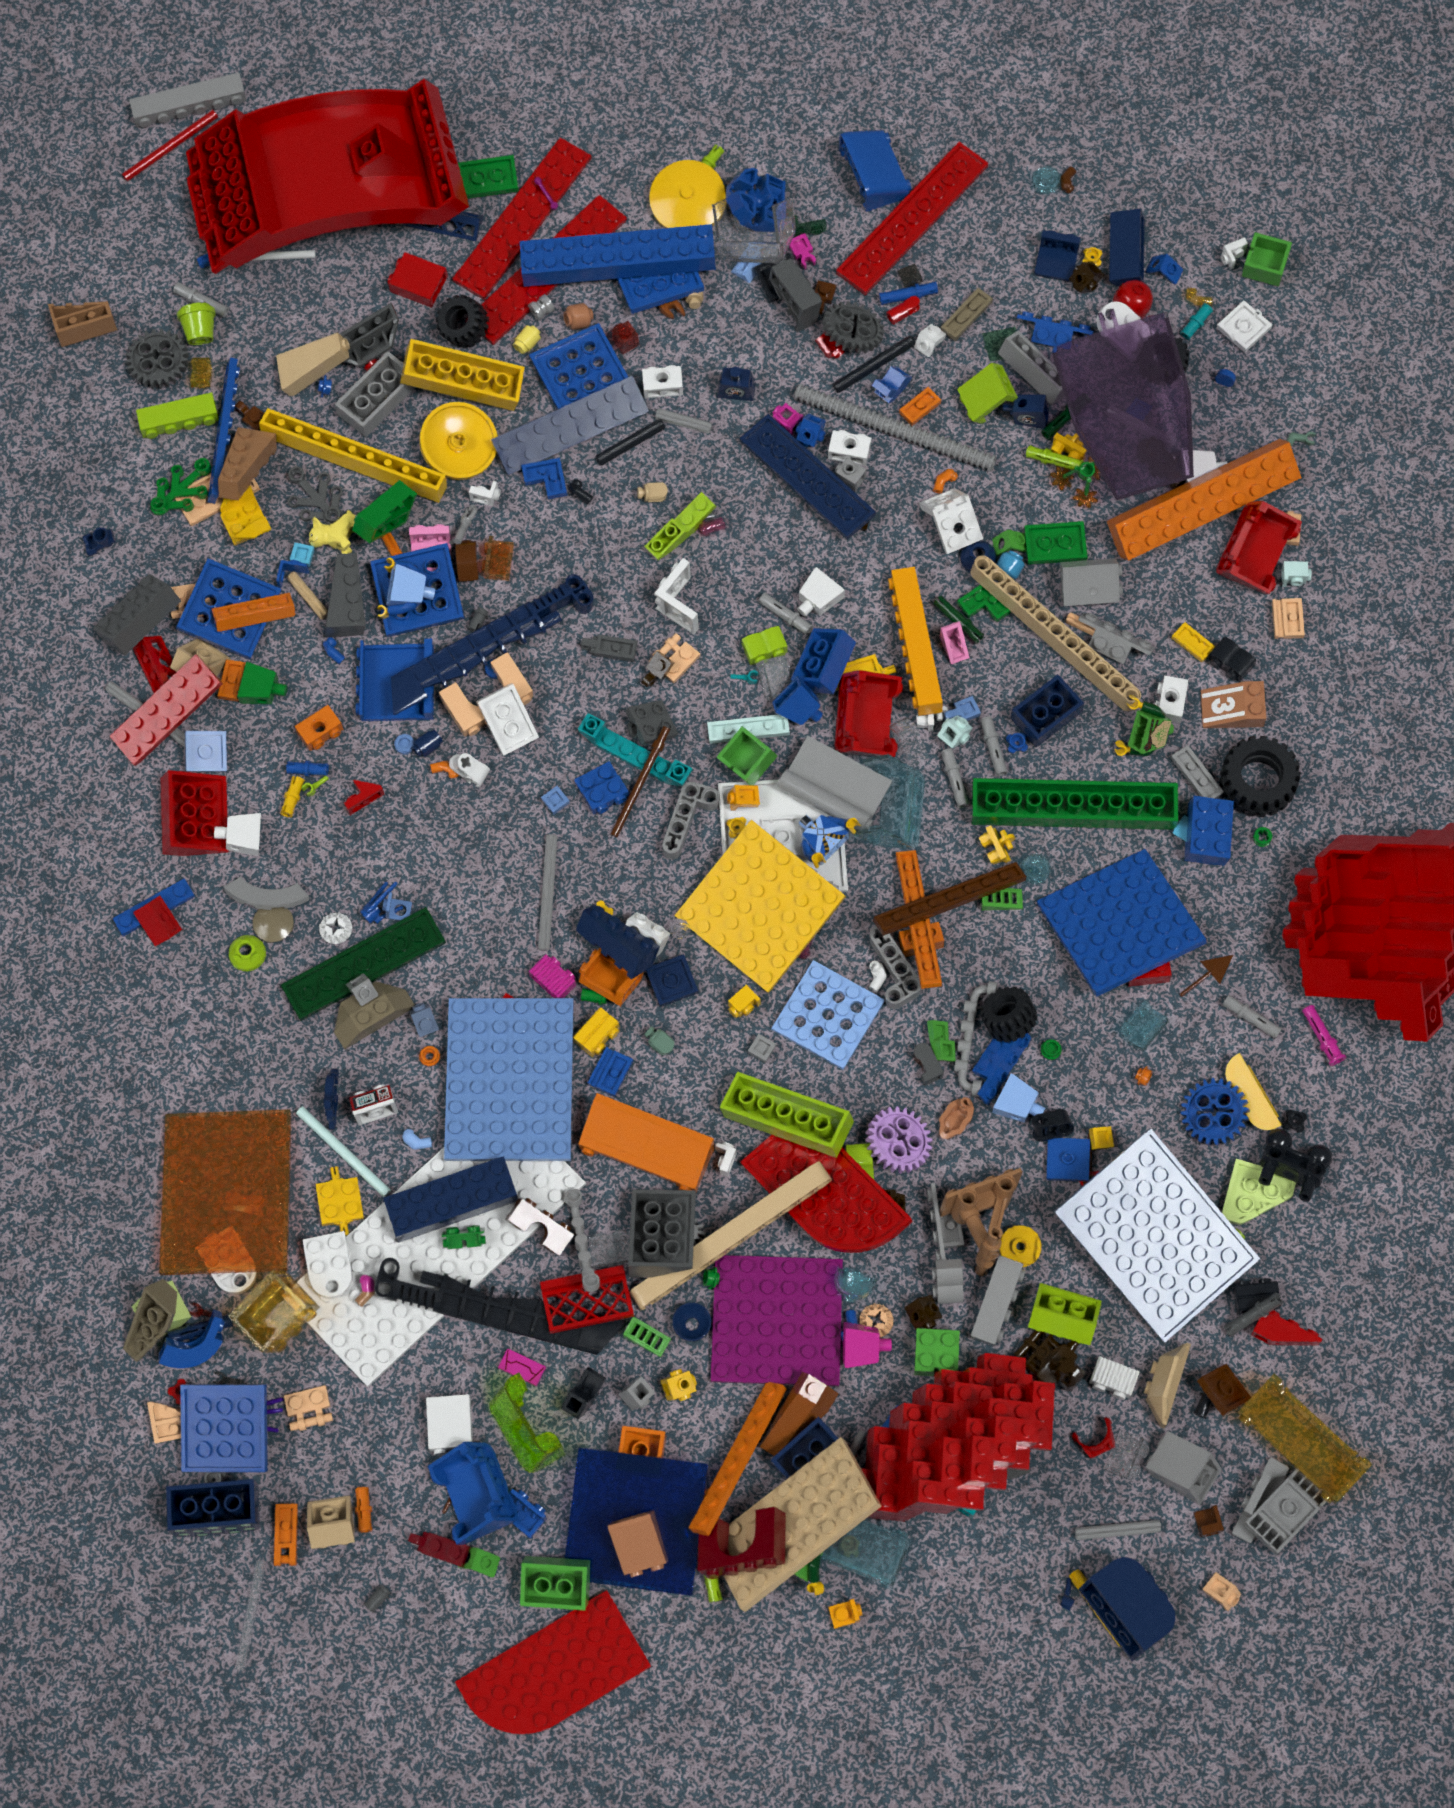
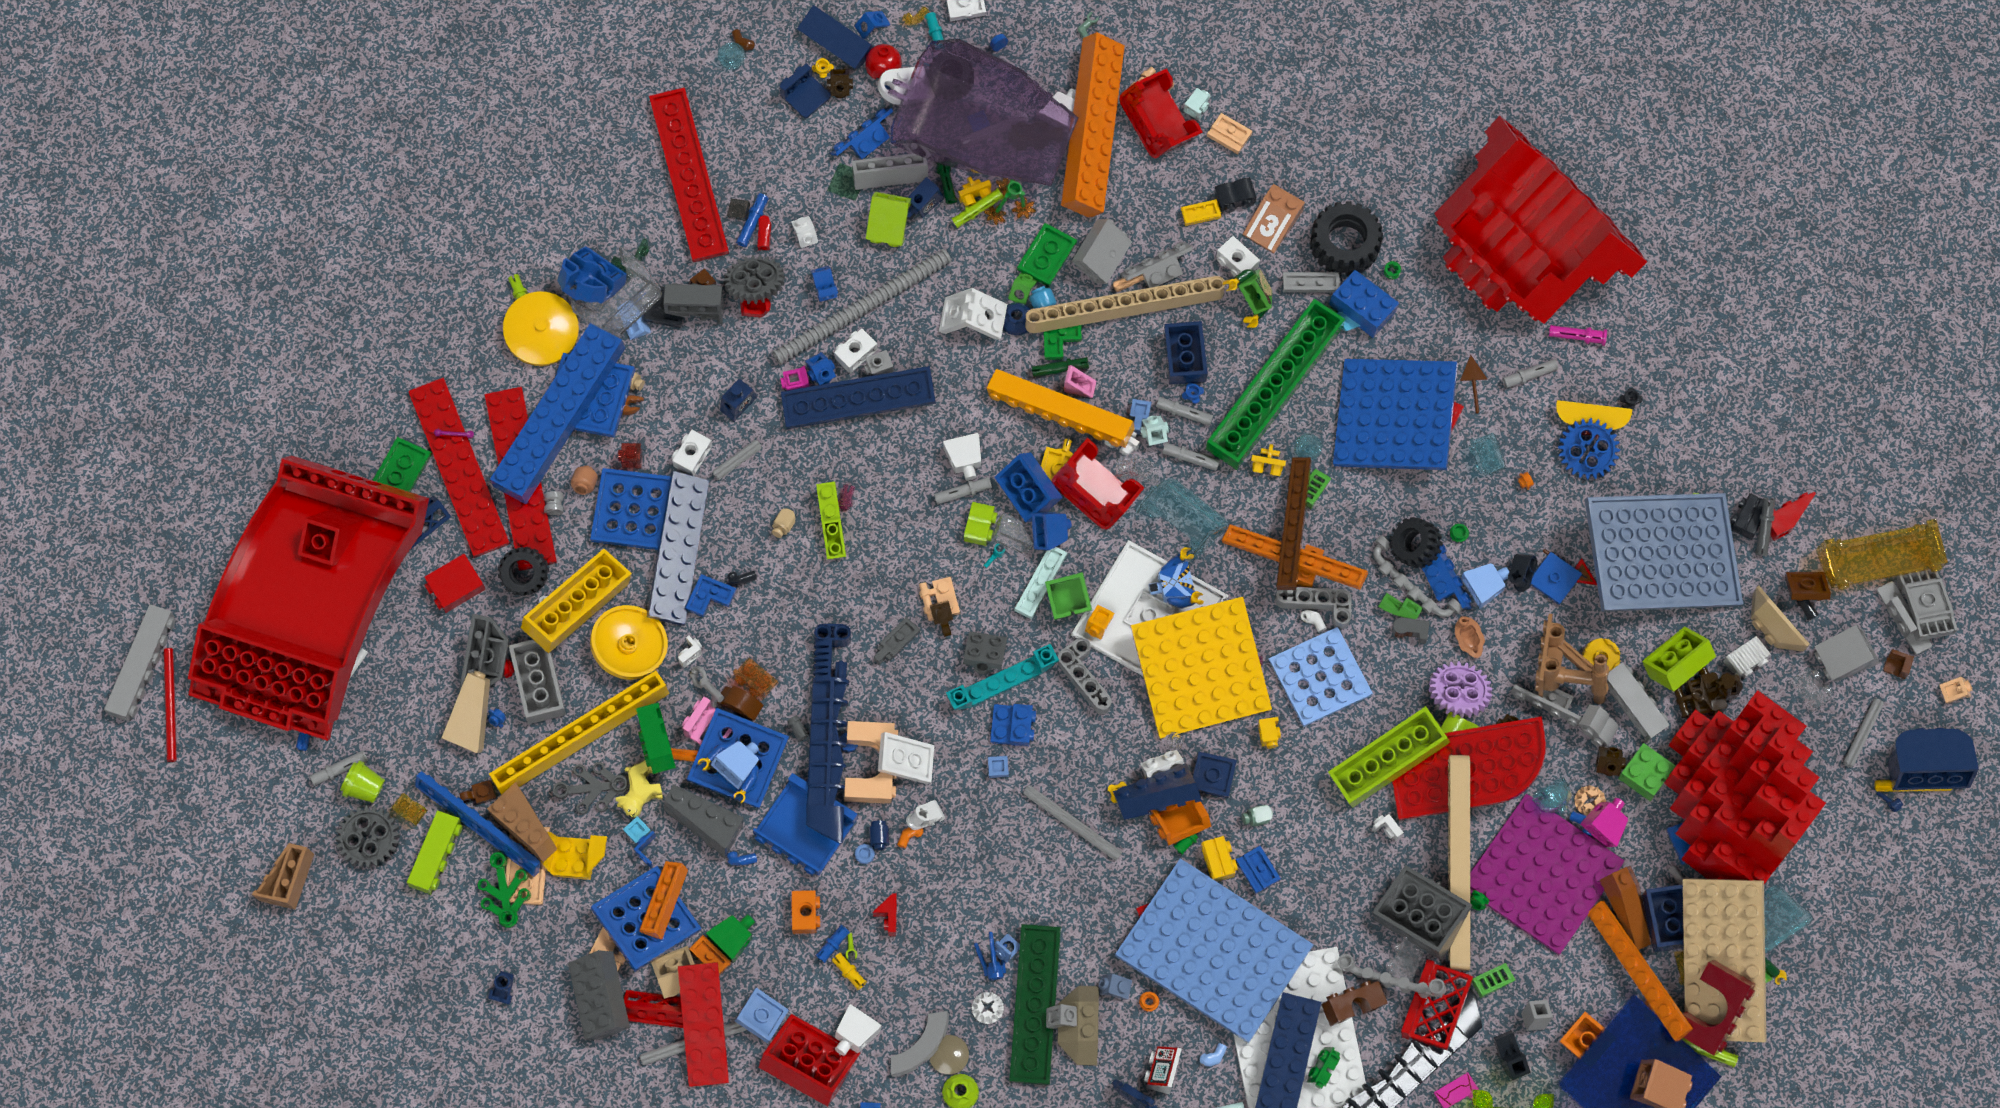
camera: 60 degrees left, 0 degrees up
(307, 595) = (676, 848): tan axle -> none
(526, 339) = (574, 532): light yellow brick -> none
(552, 977) = (1149, 863): dark pink brick -> none
(630, 442) = (725, 512): black axle -> none
(646, 1142) = (1338, 878): orange windscreen -> none
(657, 746) = (1011, 658): reddish brown bar -> none
(666, 594) = (898, 571): white bracket -> none
(679, 1385) = (1550, 979): yellow brick -> none
(689, 1311) = (1508, 928): dark blue piece -> none
(732, 823) = (1117, 637): yellow plate -> none
(762, 1048) = (1315, 743): light grey plate -> none
(801, 249) = (659, 274): dark pink plate -> none
(834, 783) = (1136, 546): light grey door -> none
(845, 1613) = (1805, 971): light orange bracket -> none
(874, 167) = (624, 172): blue windscreen -> none
(874, 364) = (794, 286): black axle -> none
(920, 406) = (857, 276): orange plate -> none
(942, 478) = (931, 298): orange arm -> none
(966, 314) = (803, 190): dark tan plate -> none
(1101, 1138) = (1554, 543): yellow plate -> none
(1106, 1445) = (1795, 698): red helmet -> none
(1248, 1197) = (1667, 462): yellowish green plate -> none
(1293, 1165) = (1675, 416): black piece -> none

